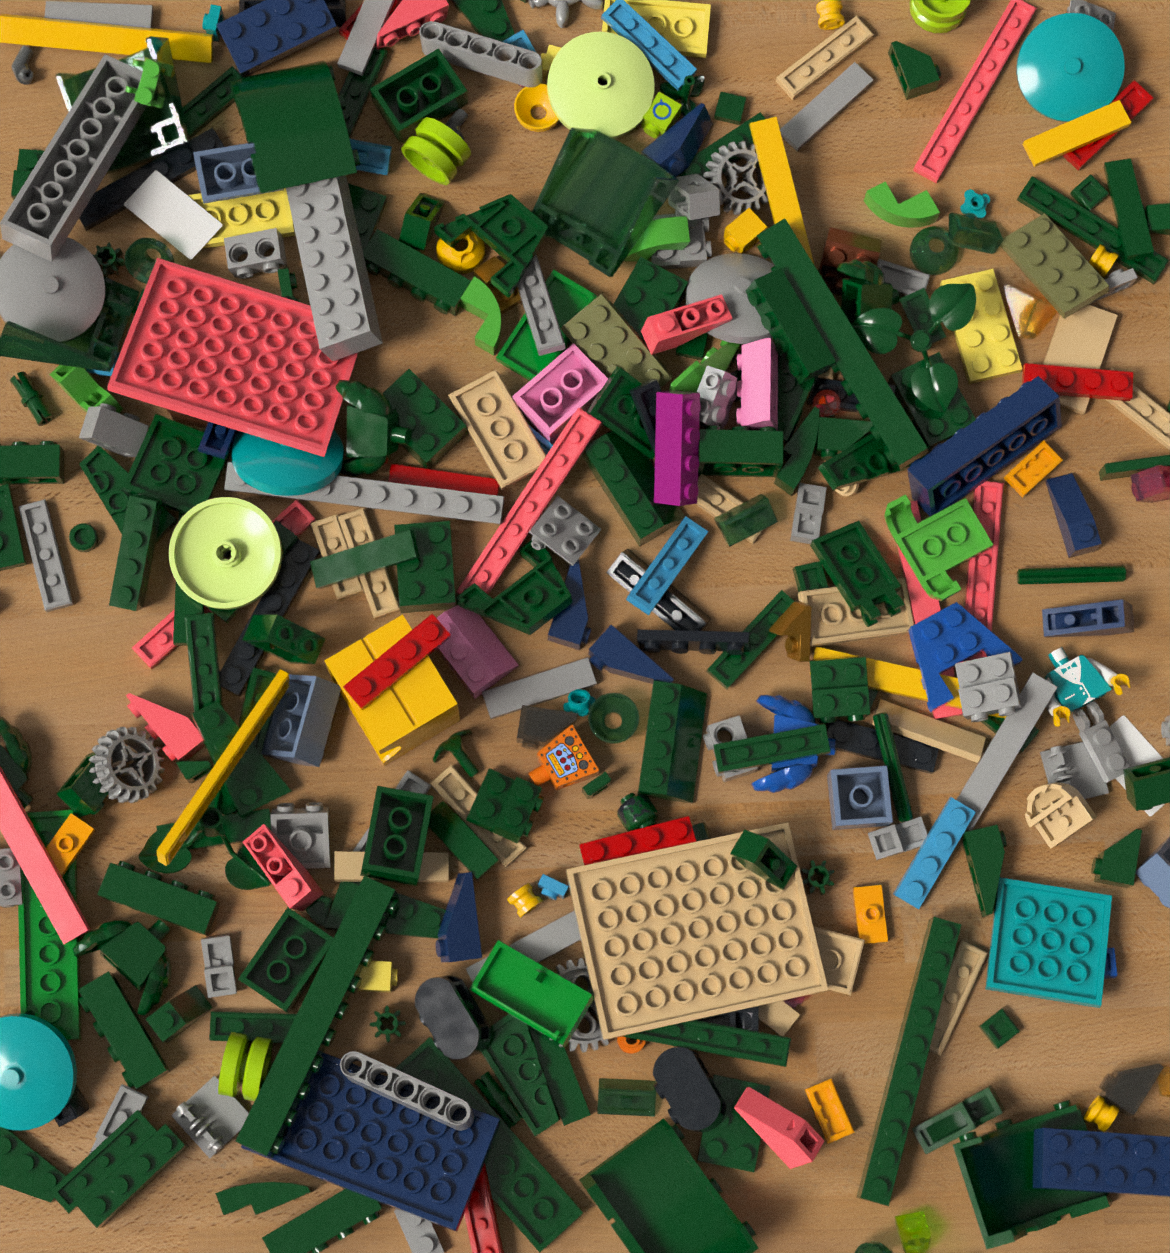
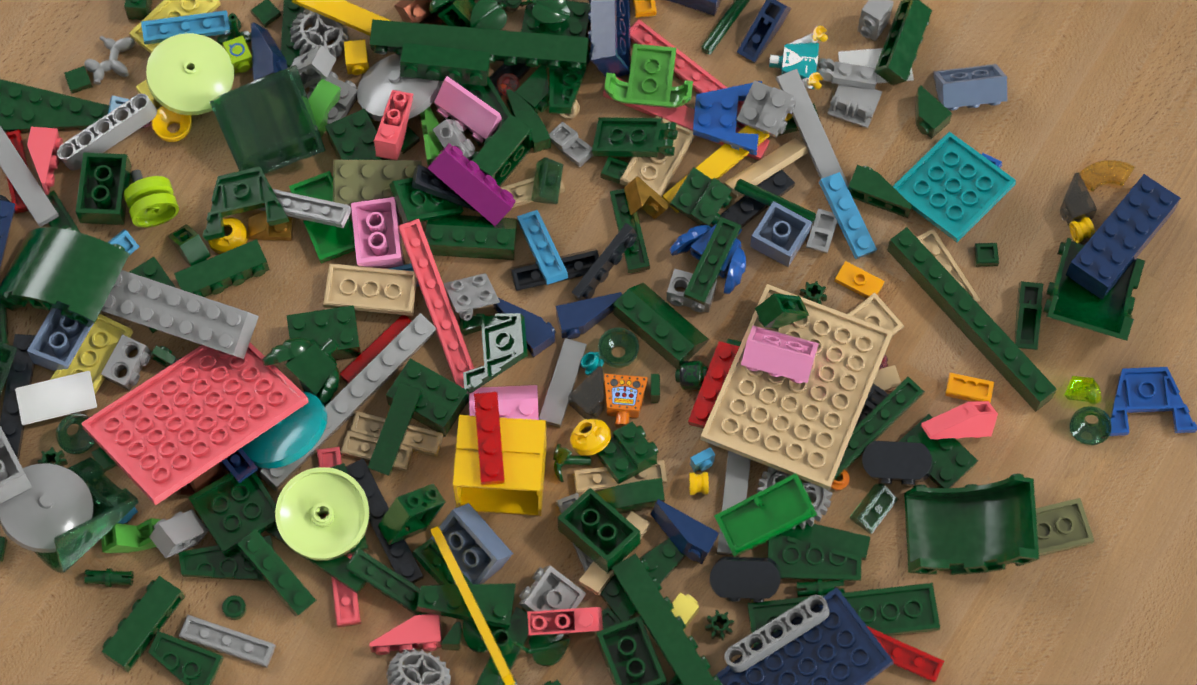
camera: 50 degrees left, 10 degrees down
(482, 303) = (279, 243): bright green brick -> none
(497, 765) = (592, 441): none -> yellow piece
(713, 889) = (779, 354): none -> bright pink slope
(1057, 812) = (874, 125): tan slope -> none

